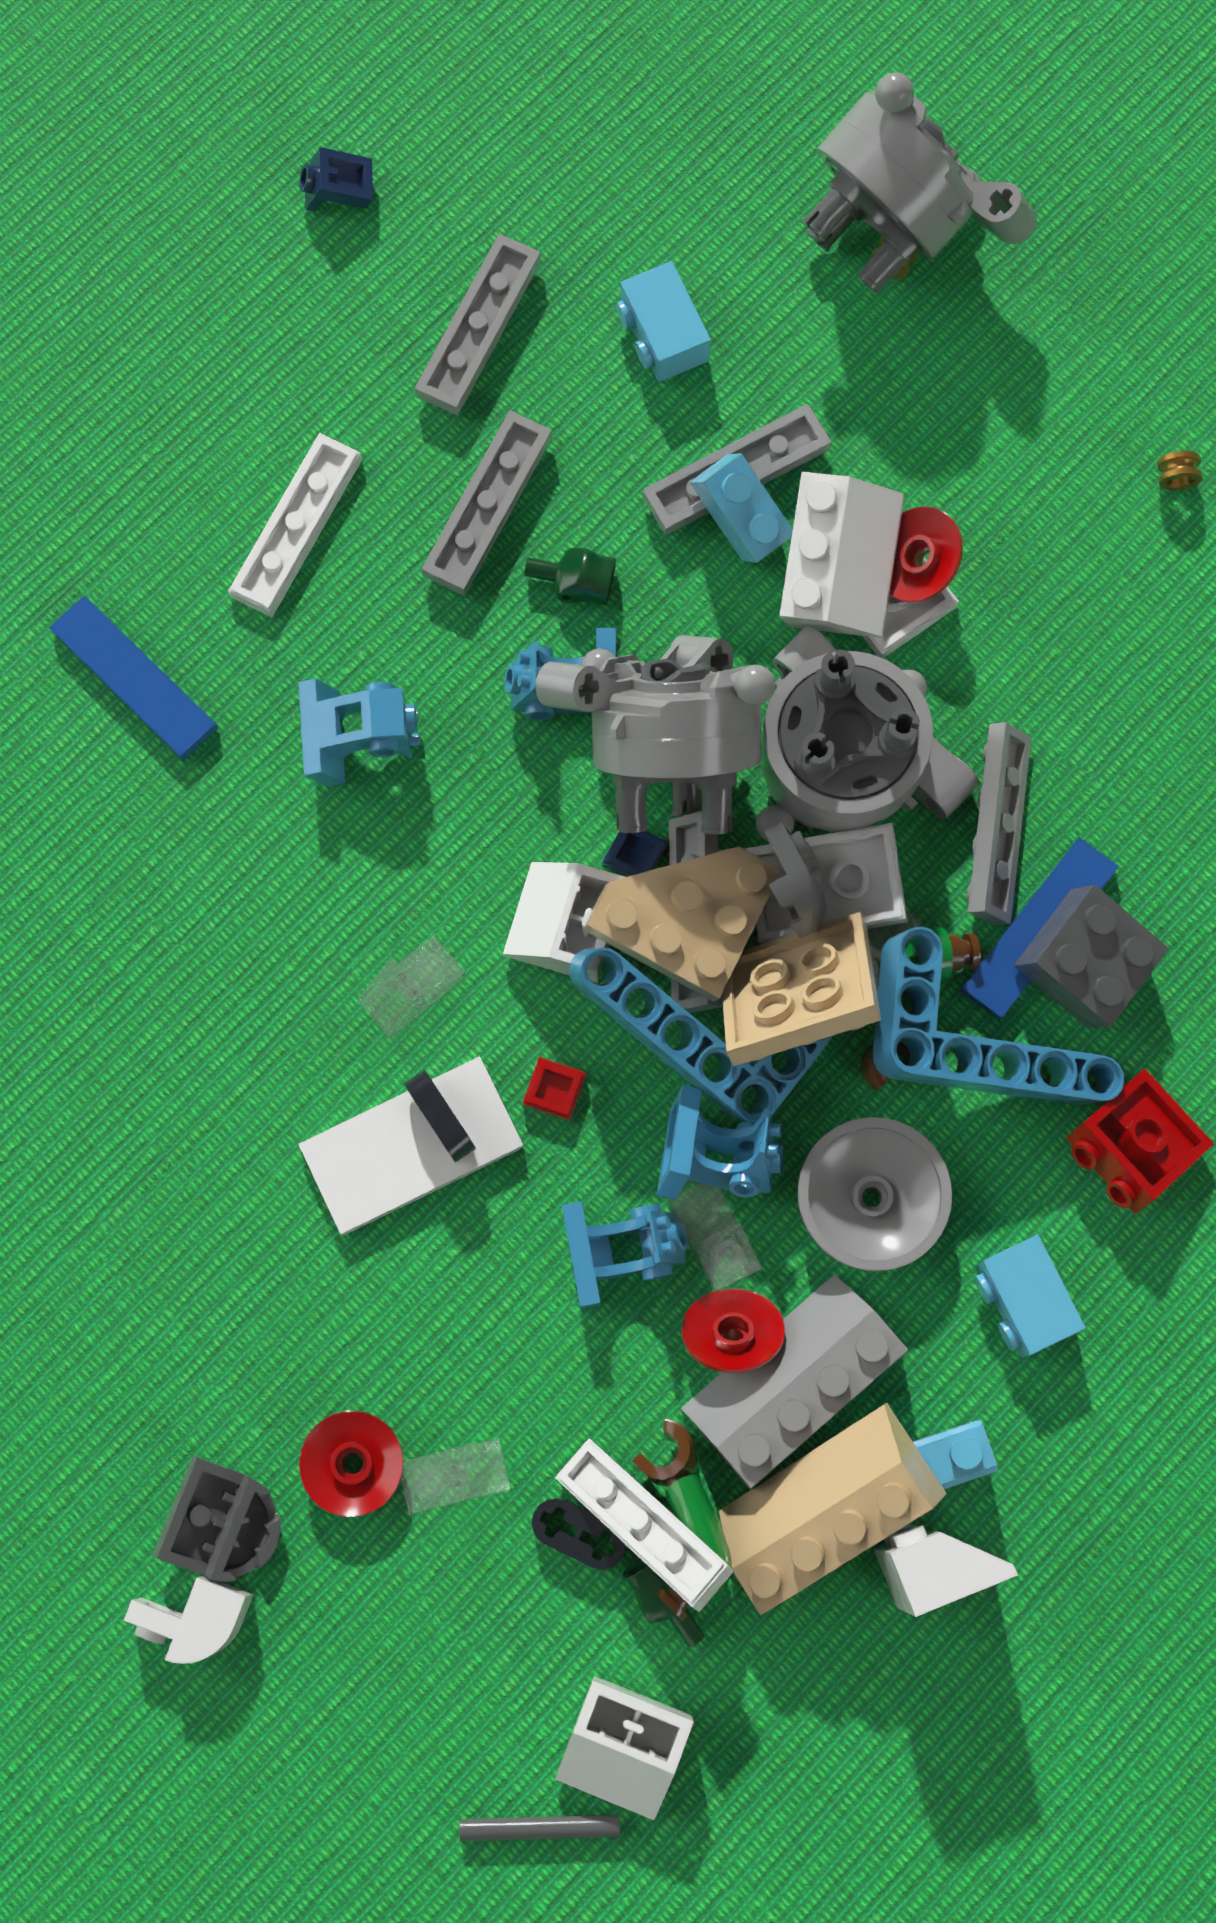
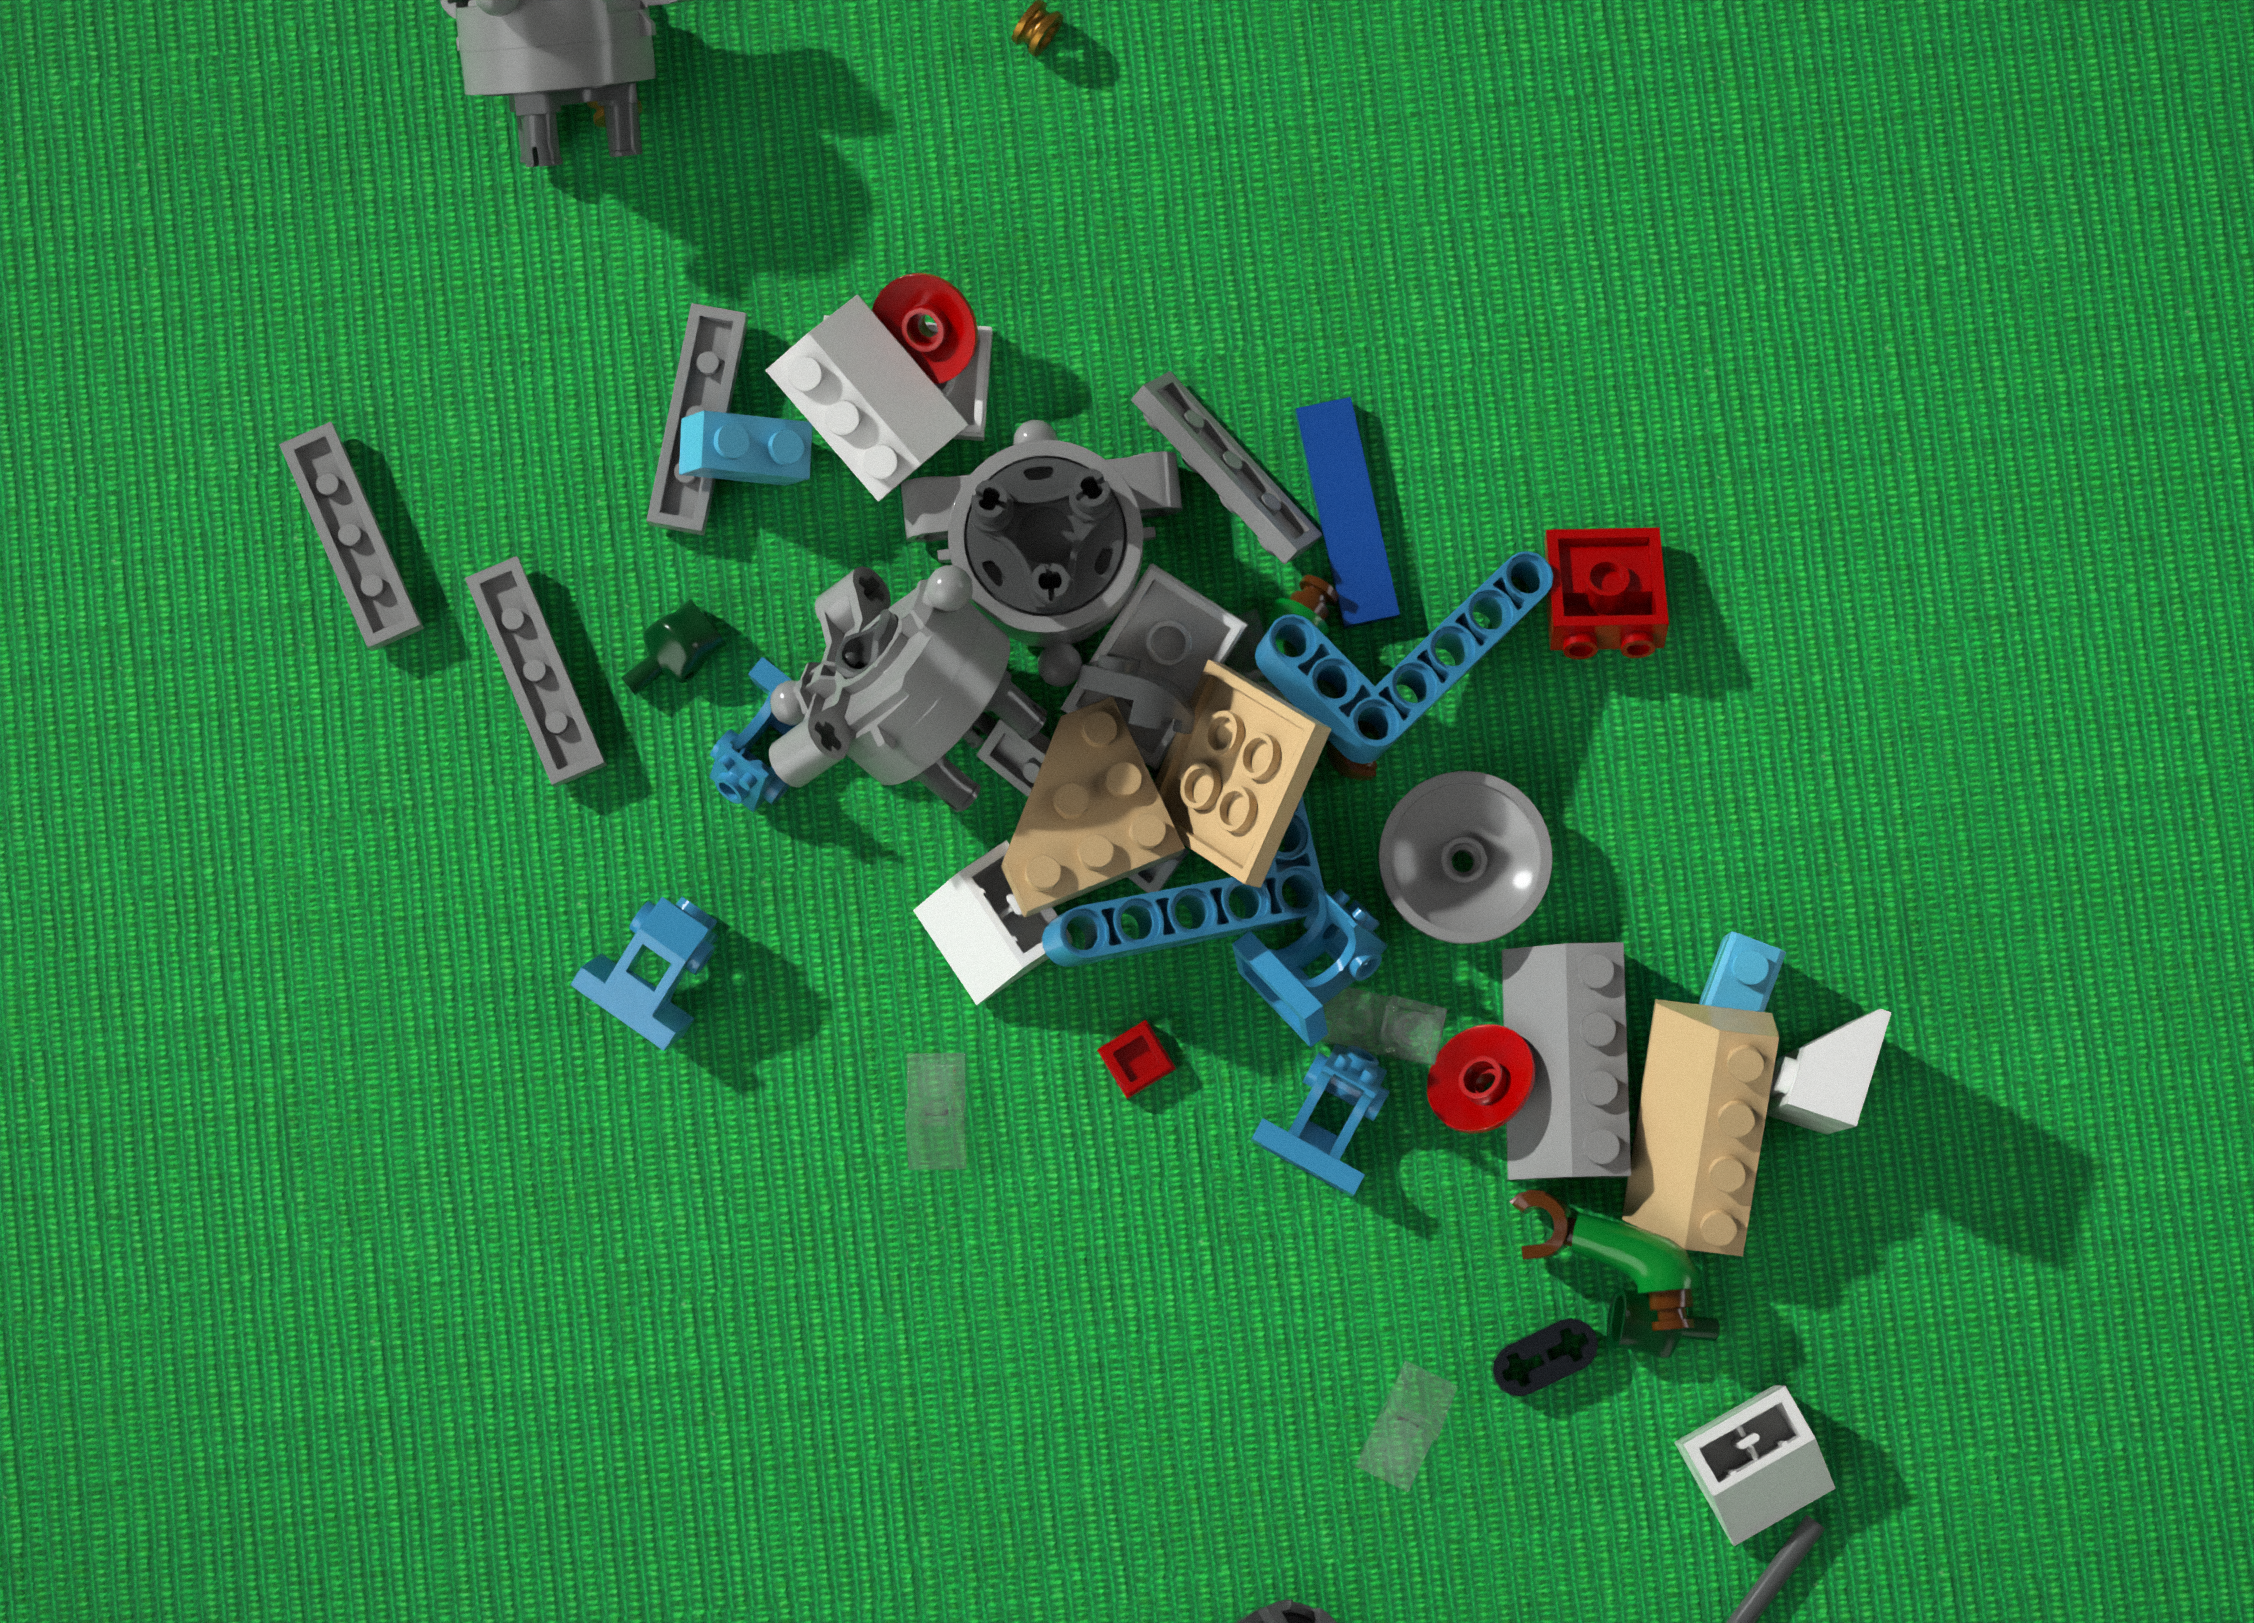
camera: 50 degrees left, 5 degrees up
(133, 678) = (428, 1132): blue tile -> none
(295, 525) = (403, 864): white tile -> none
(324, 1457) = (1355, 1515): red dish -> none
(337, 179) = (90, 549): dark blue bracket -> none
(395, 1156) = (1082, 1228): white tile -> none
(439, 1116) = (1082, 1181): black beam -> none
(635, 853) = (987, 816): dark blue tile -> none
(644, 1525) = (1586, 1293): white tile -> none
(664, 322) = (497, 366): medium azure brick -> none
(1028, 1297) = (1659, 800): medium azure brick -> none
(1091, 957) = (1413, 492): dark grey brick -> none

